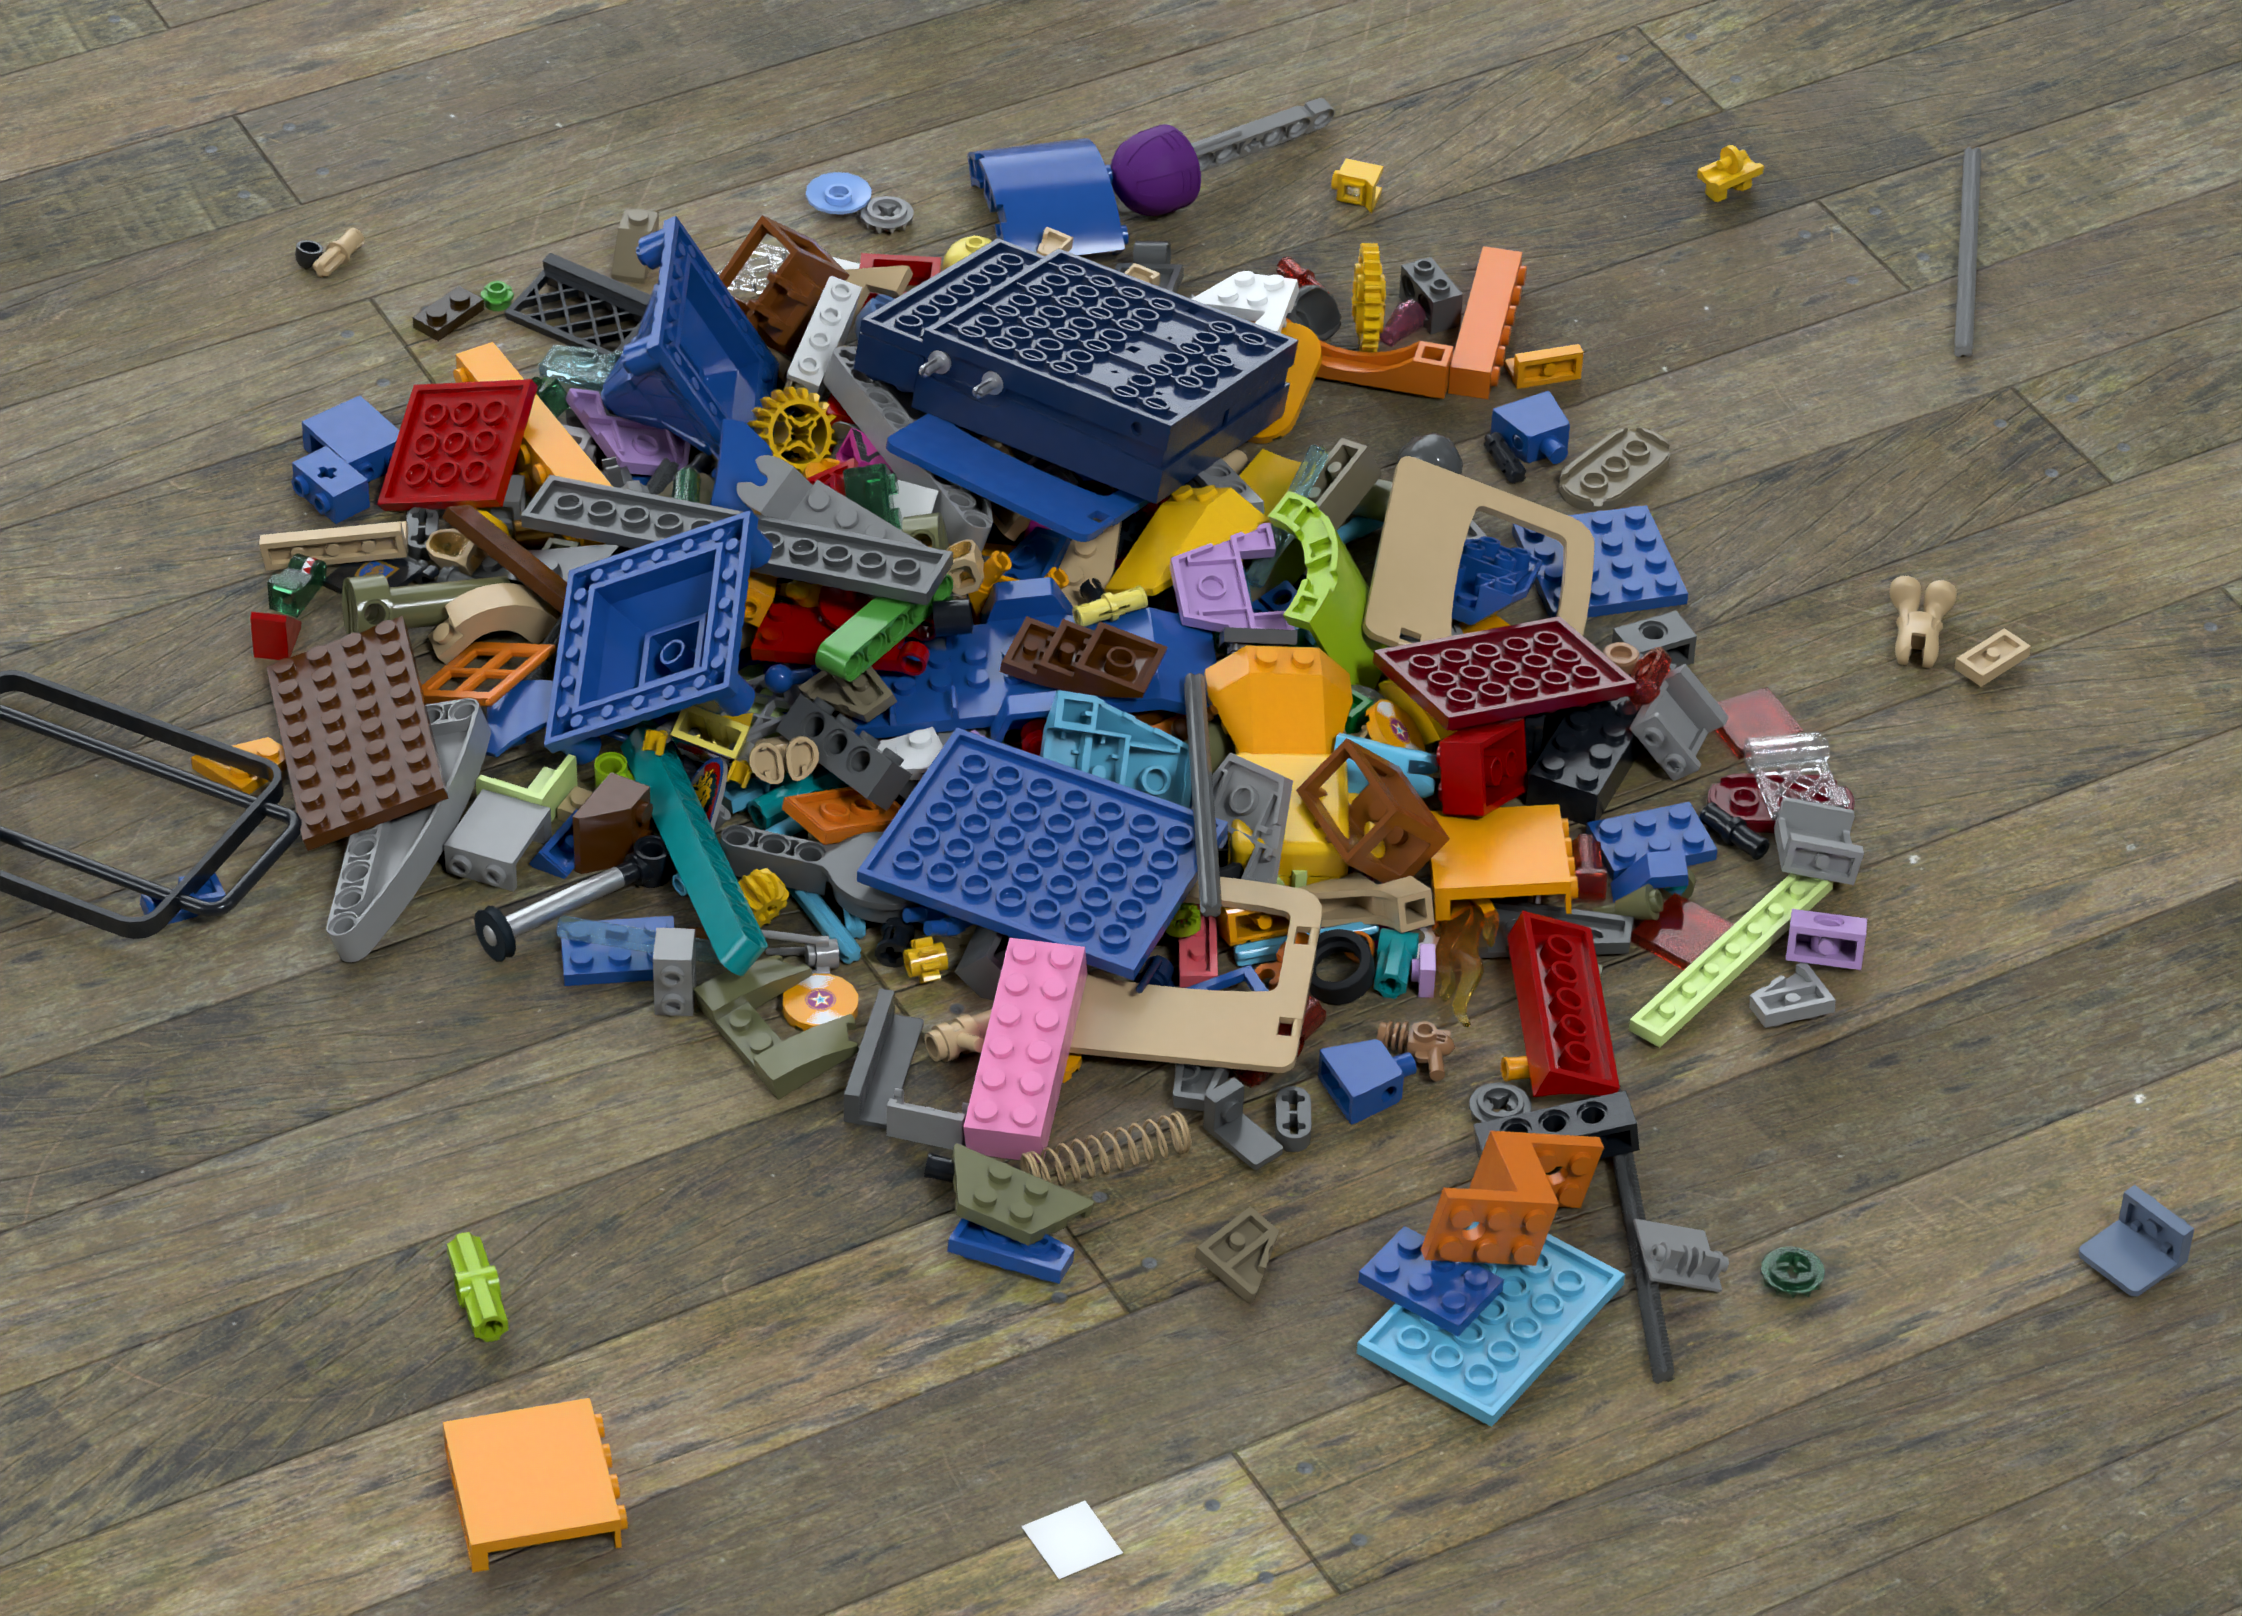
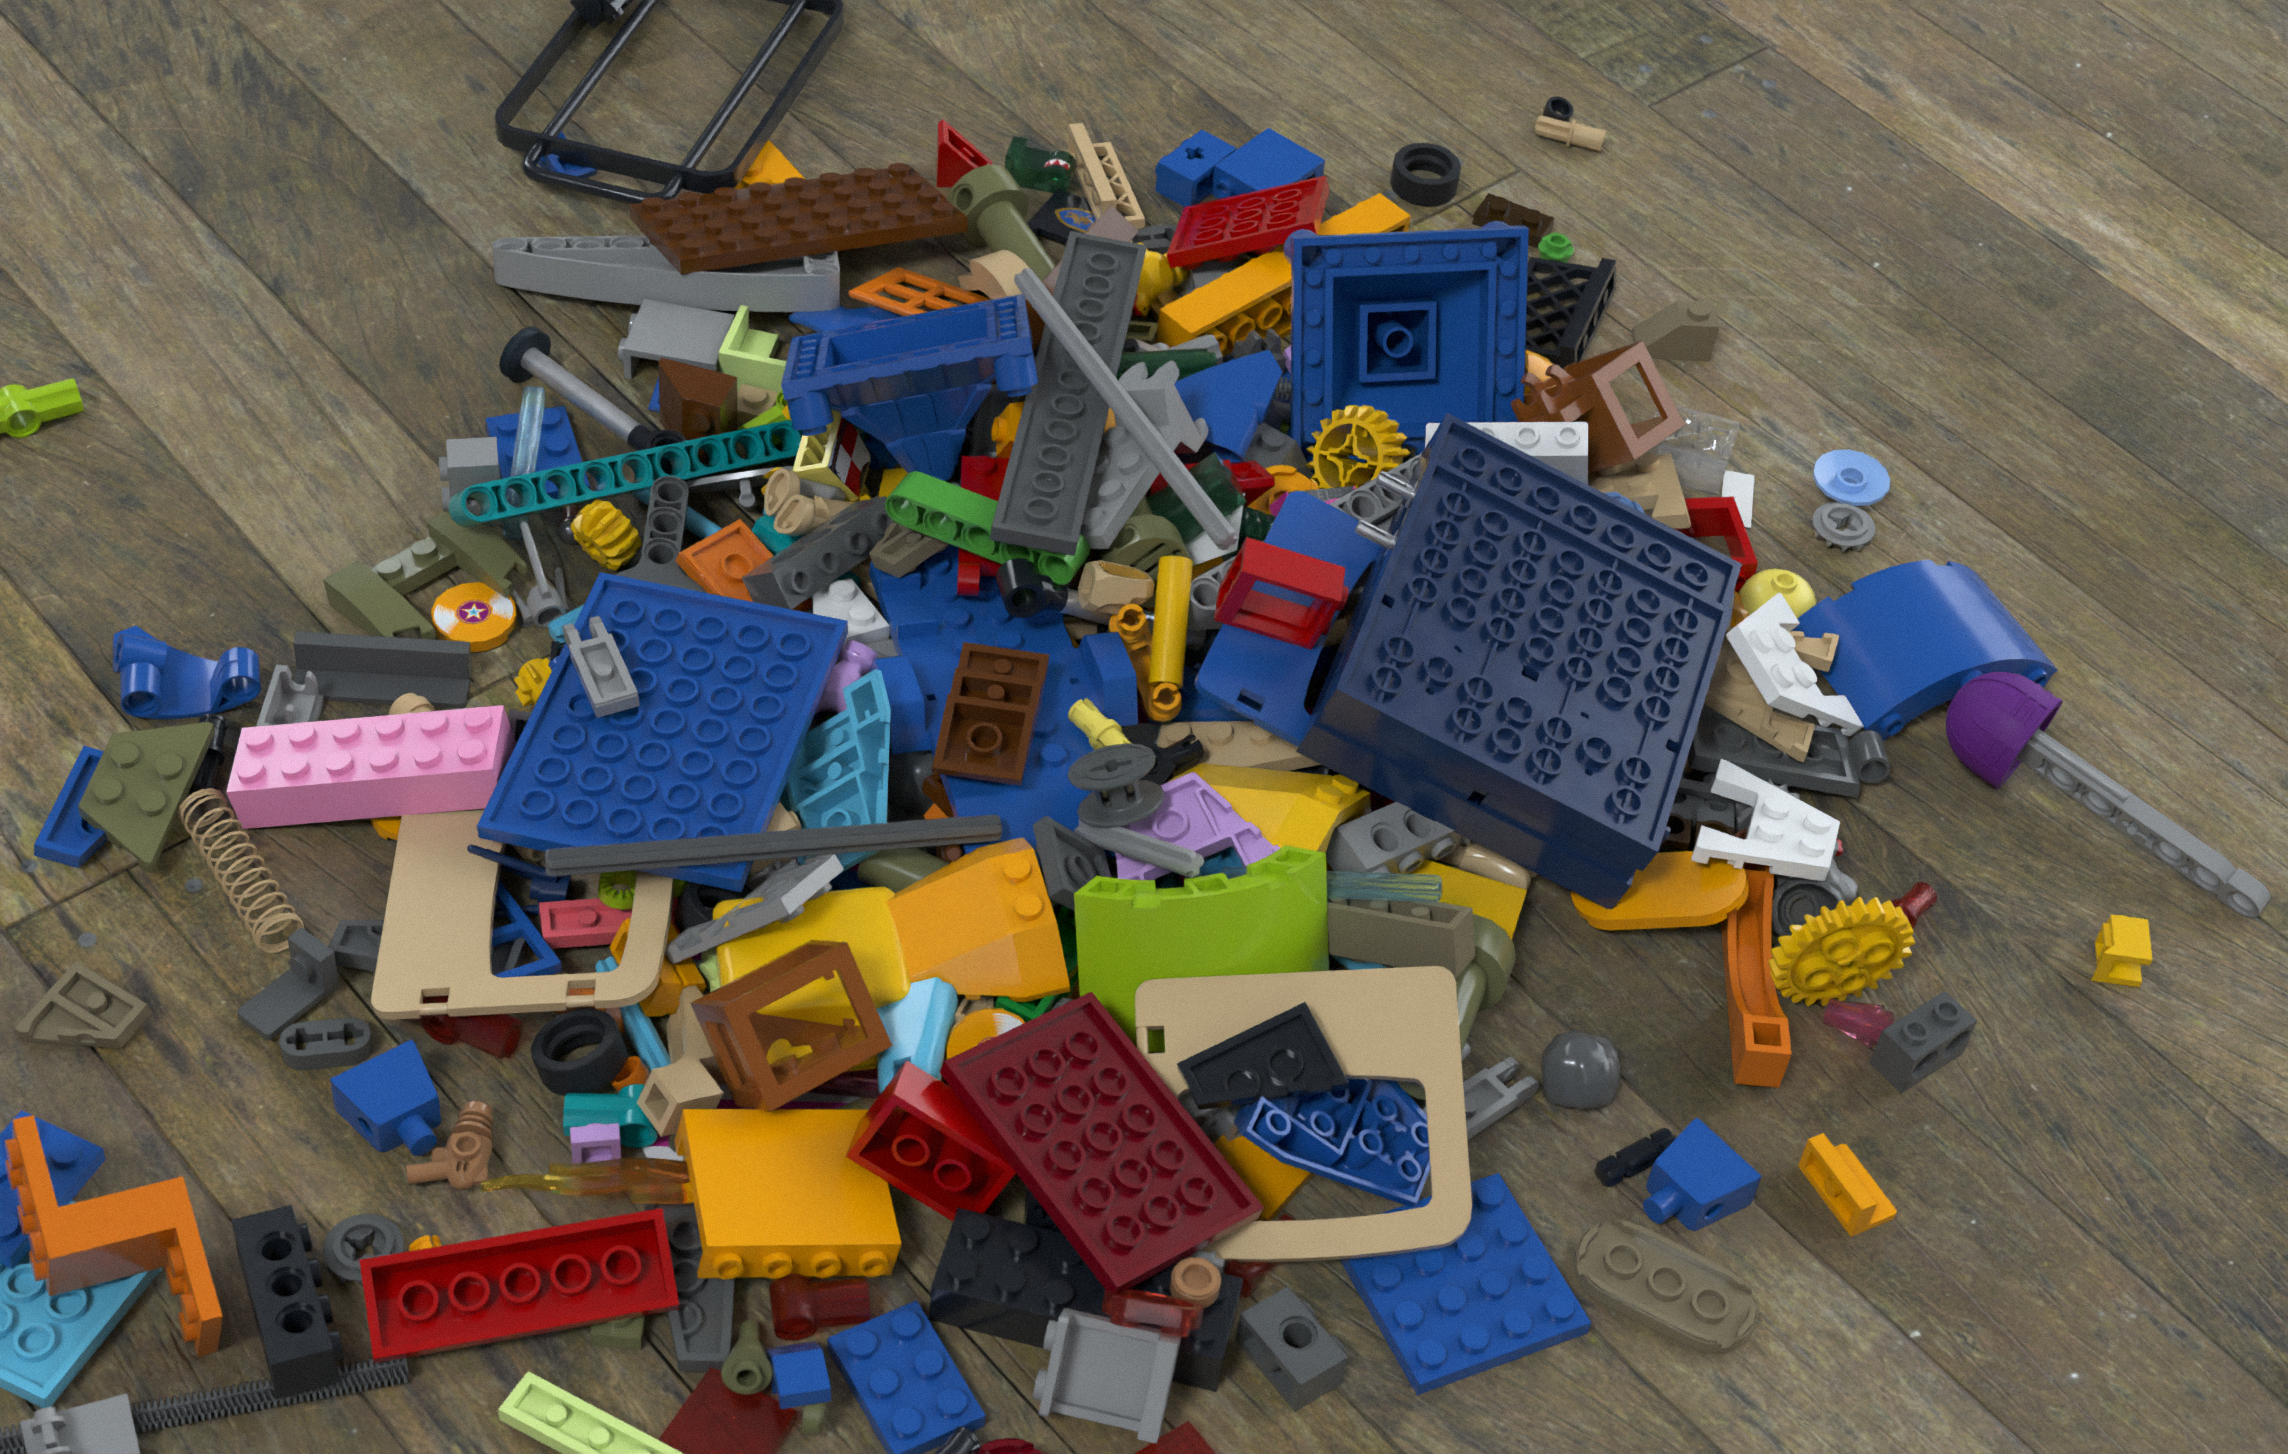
camera: 75 degrees right, 5 degrees up
(379, 364) = (1422, 190): none -> black tyre
(793, 500) = (1127, 410): none -> light grey axle
(866, 1185) = (177, 685): none -> blue panel
(963, 527) = (1170, 621): none -> yellow piece
(982, 871) = (601, 669): none -> light grey hinge
(1024, 459) = (1274, 616): none -> red window
(1089, 248) = (1778, 672): none -> white wing
(1184, 596) = (1118, 793): none -> dark grey piece
(1248, 595) = (1144, 848): none -> light grey axle
(1452, 575) = (1270, 1060): none -> black wing
(1486, 323) = (1900, 1108): brick -> none

